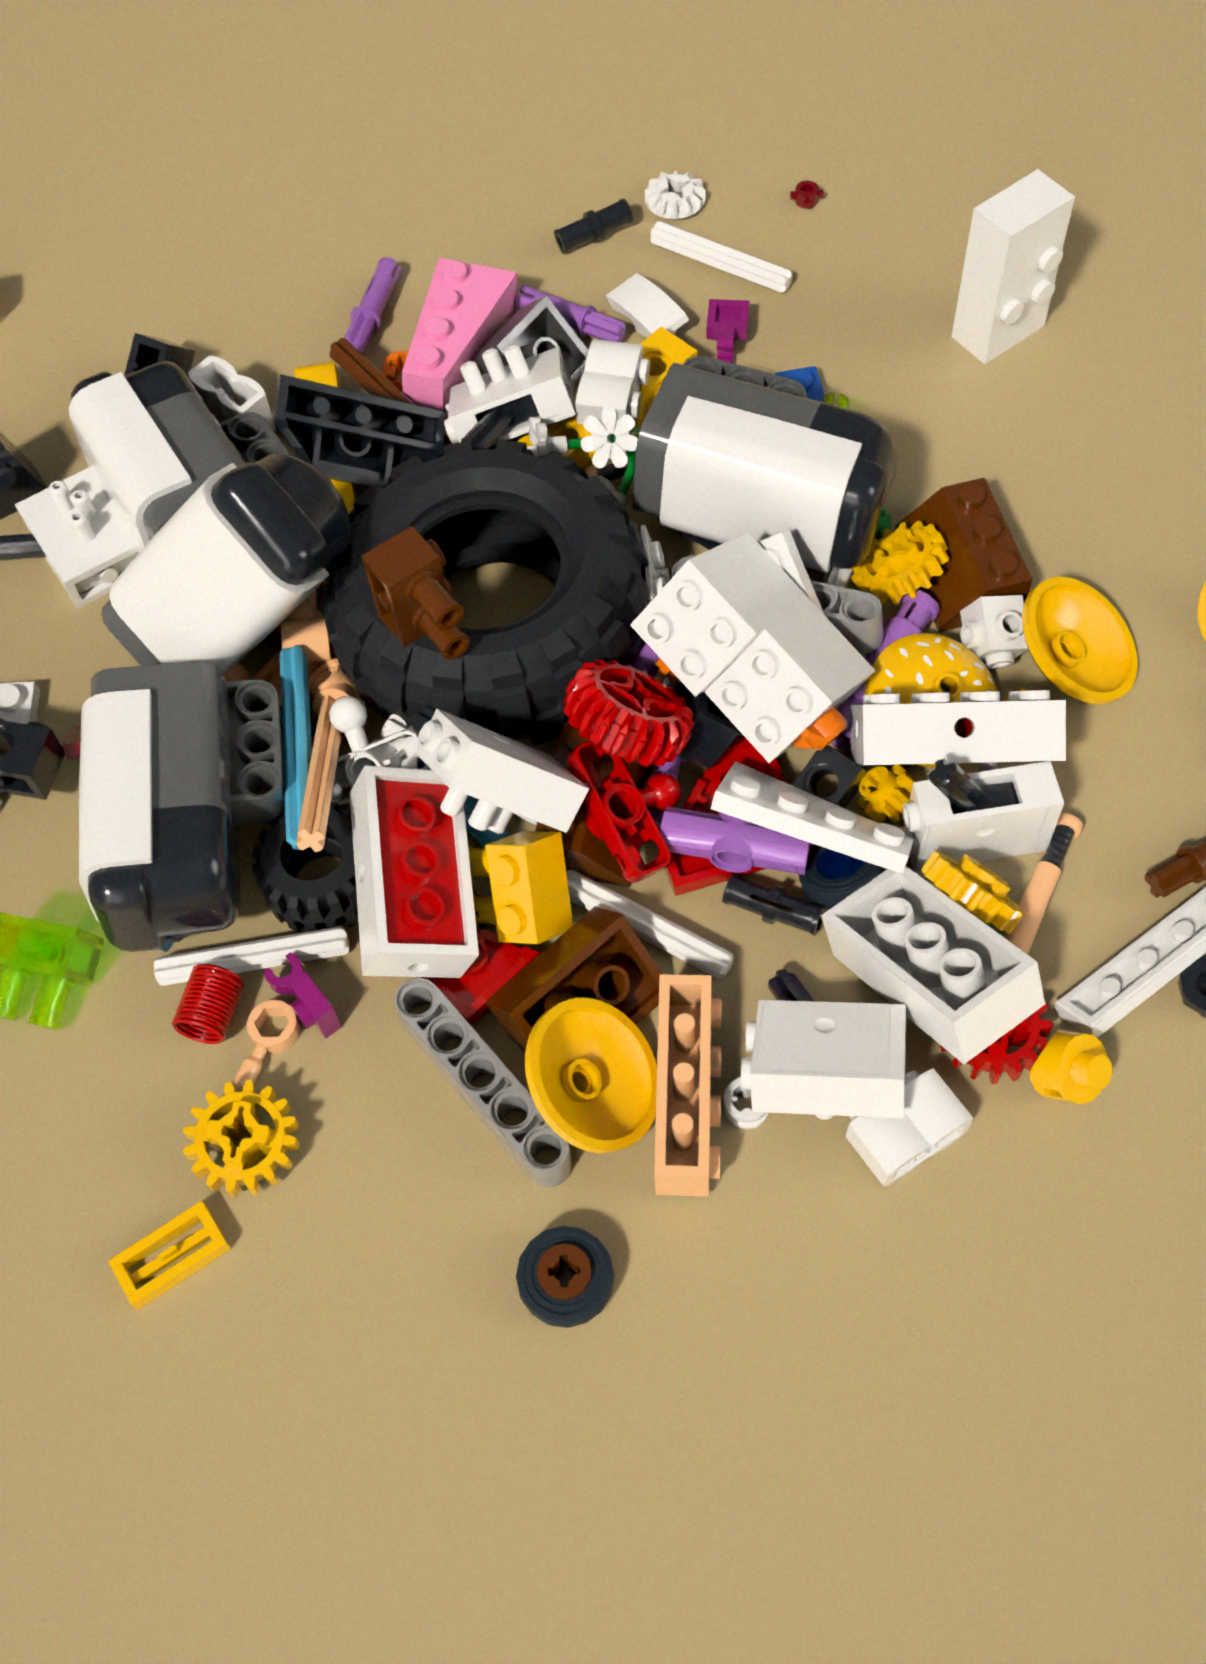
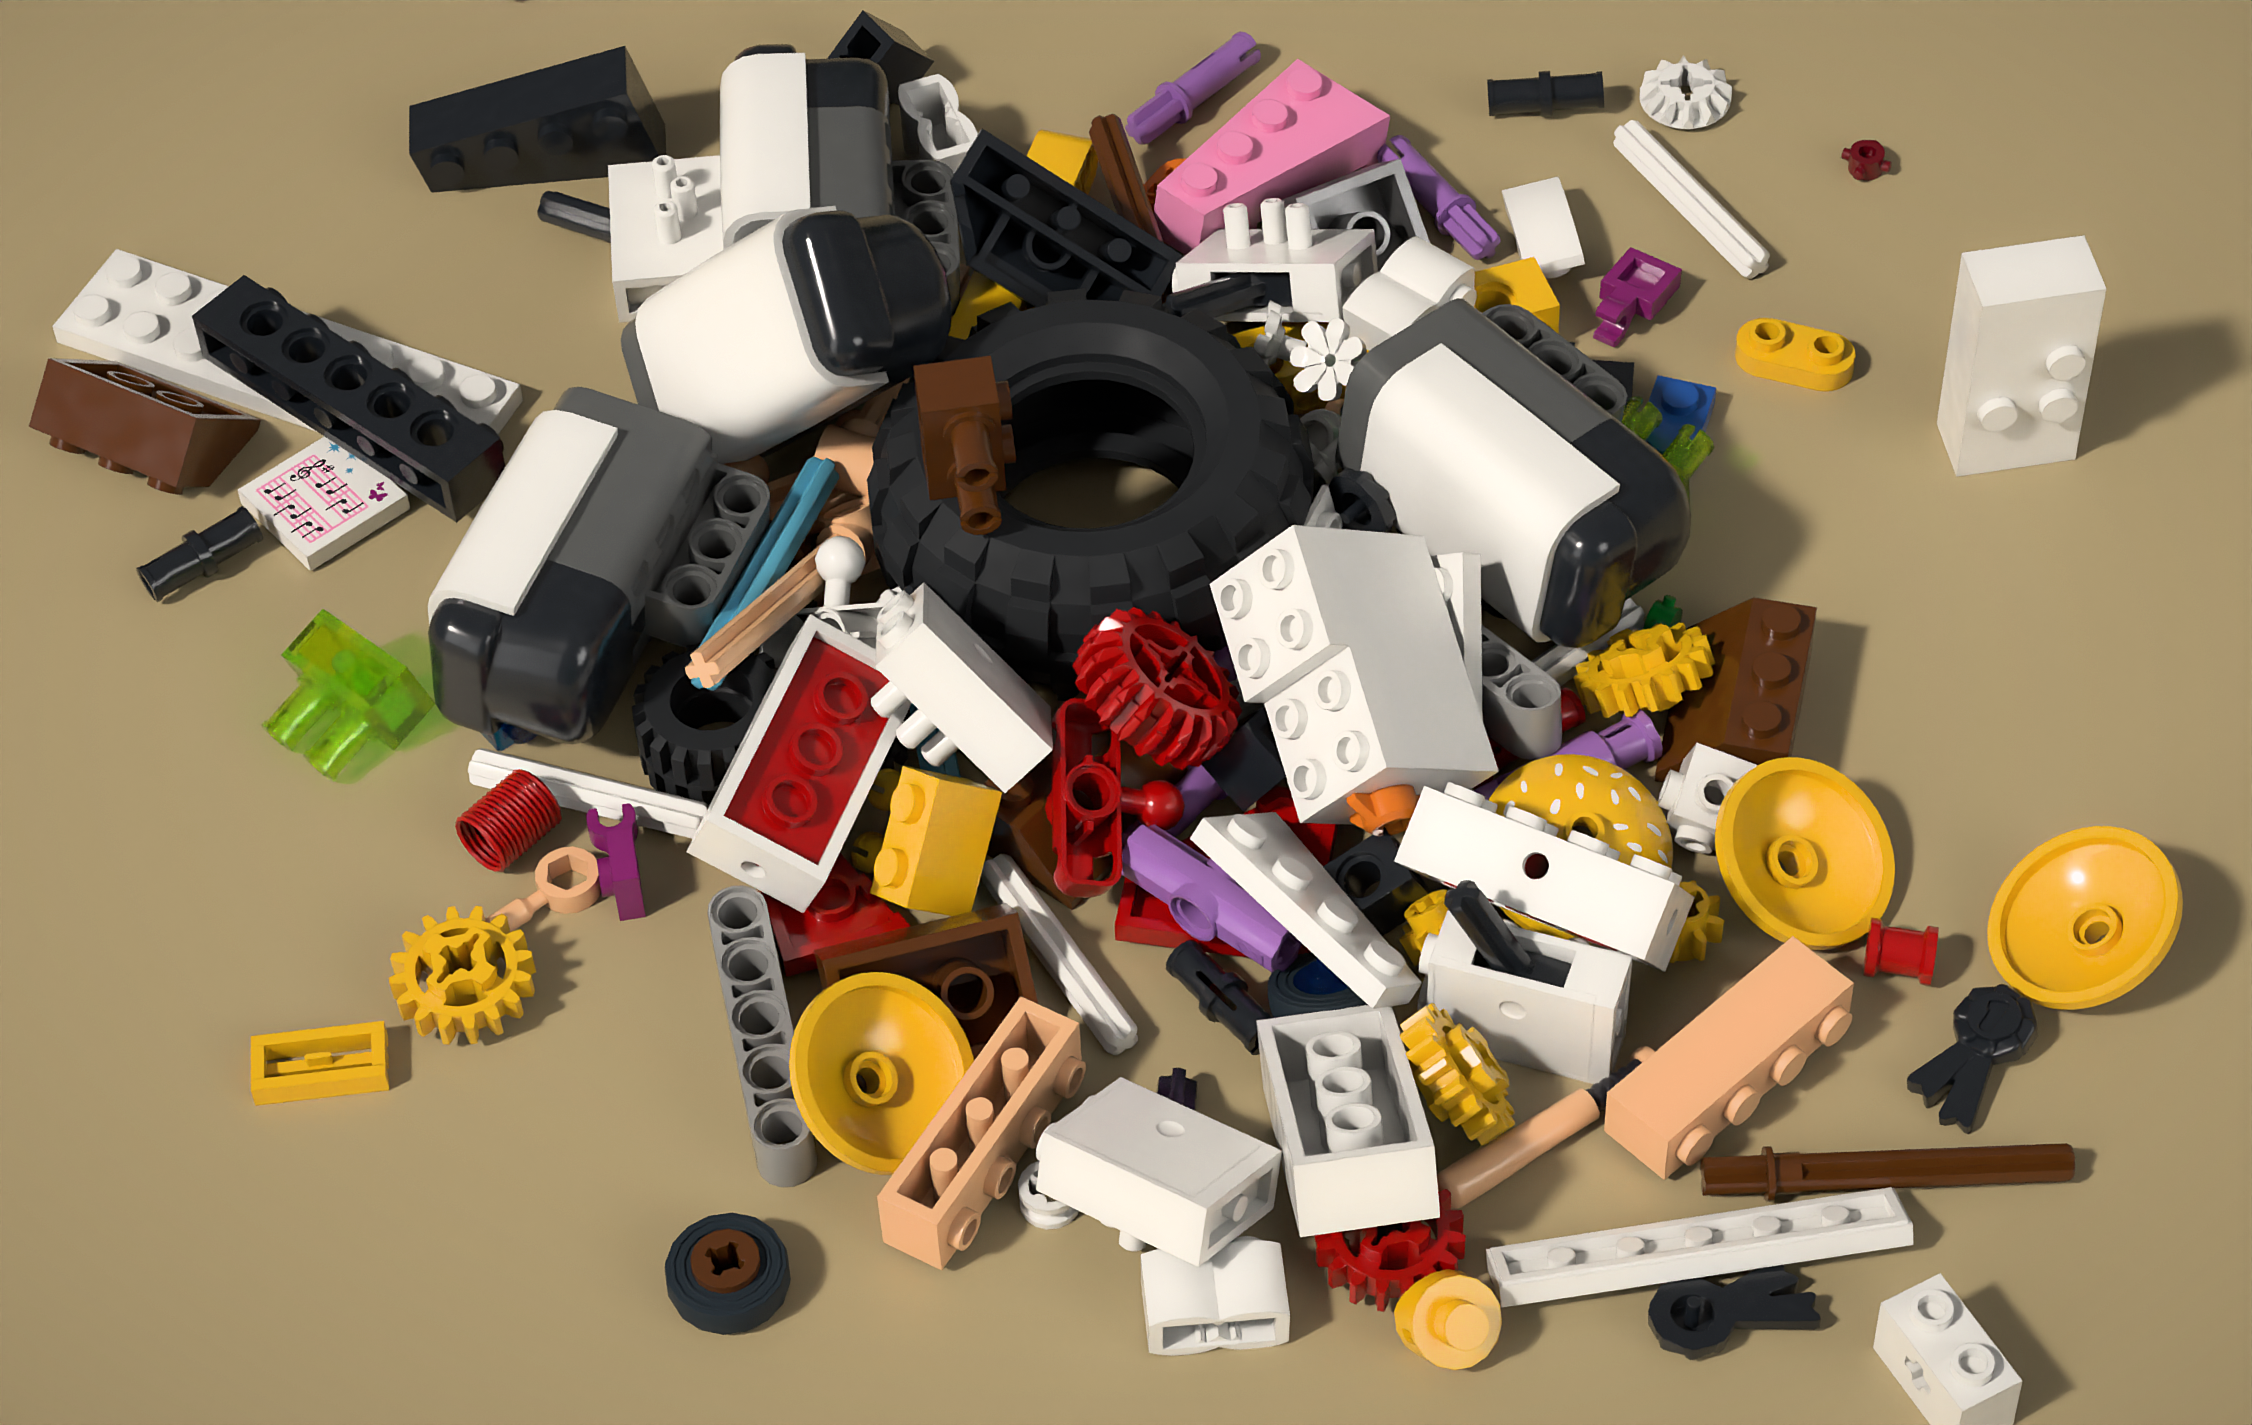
camera: 25 degrees right, 10 degrees down
(671, 529) = (1361, 502): none -> black piece
(844, 327) = (1795, 354): none -> yellow plate
(1124, 798) = (1729, 1058): none -> light nougat brick
(1168, 678) = (1900, 951): none -> red bush

